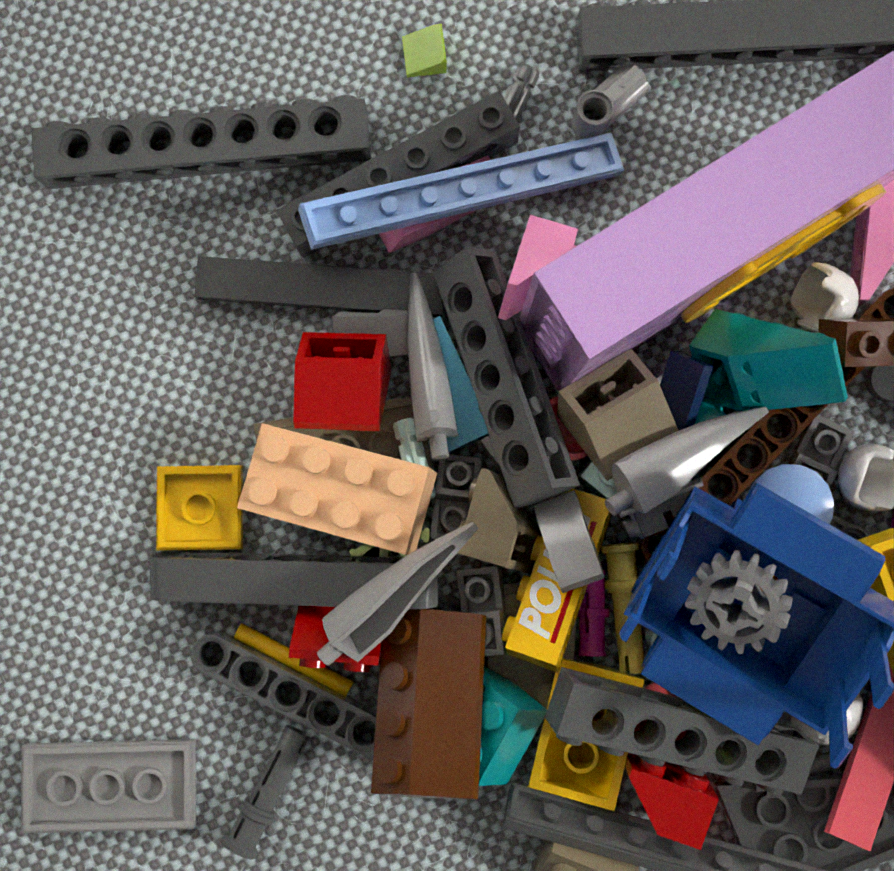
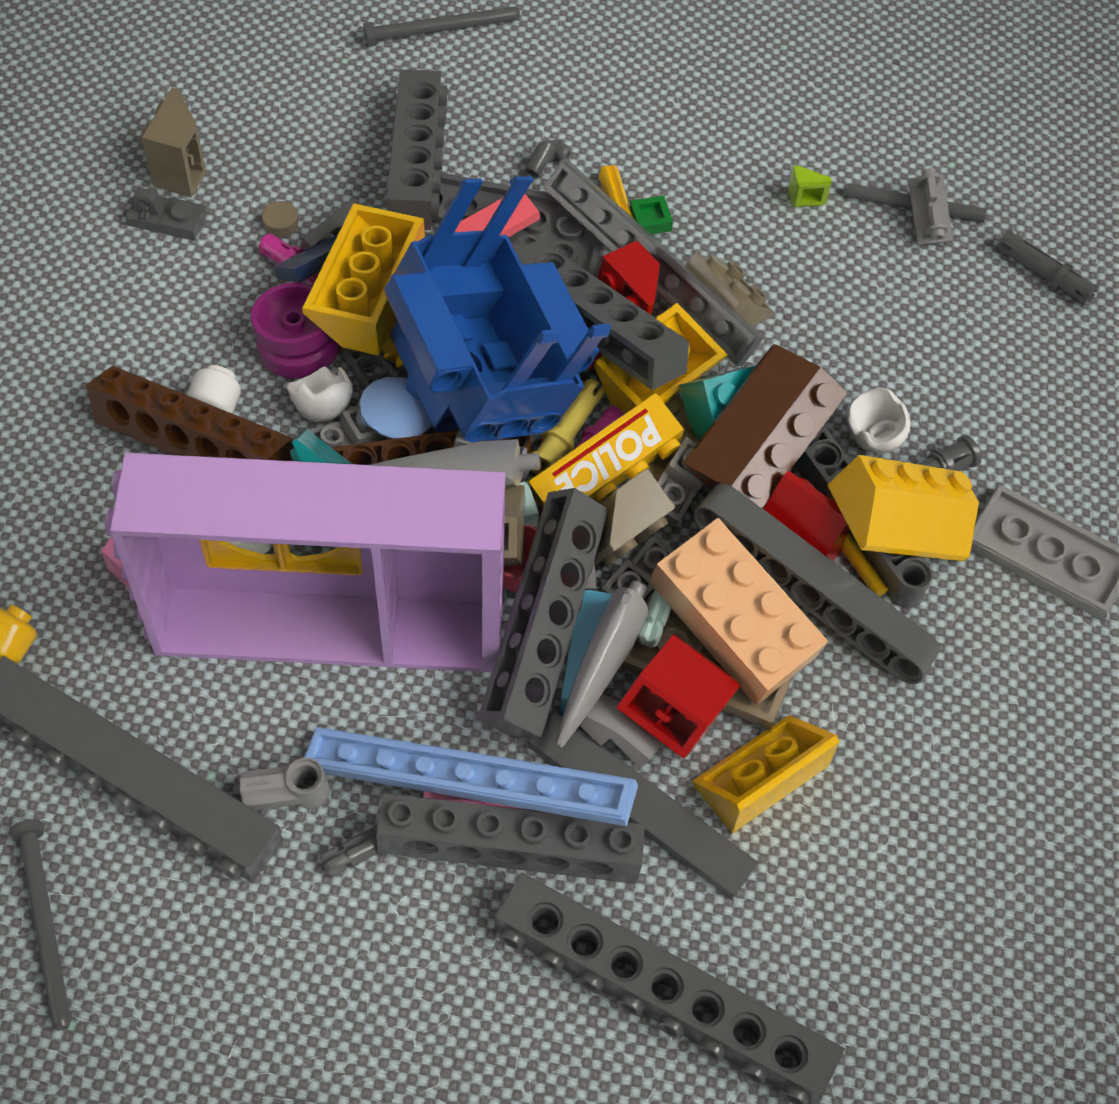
camera: 150 degrees left, 25 degrees down
(199, 507) = (857, 698): yellow tile -> none
(235, 379) = (766, 770): none -> yellow slope
(247, 707) = (907, 508): none -> yellow slope
(339, 814) = (878, 420): none -> white hair
(380, 603) = (761, 503): light grey piece -> none
(425, 52) = (404, 942): lime slope -> none
(540, 245) = (445, 688): bright pink slope -> none
(568, 541) = (587, 458): light grey slope -> none
(715, 606) = (499, 329): light grey gear -> none

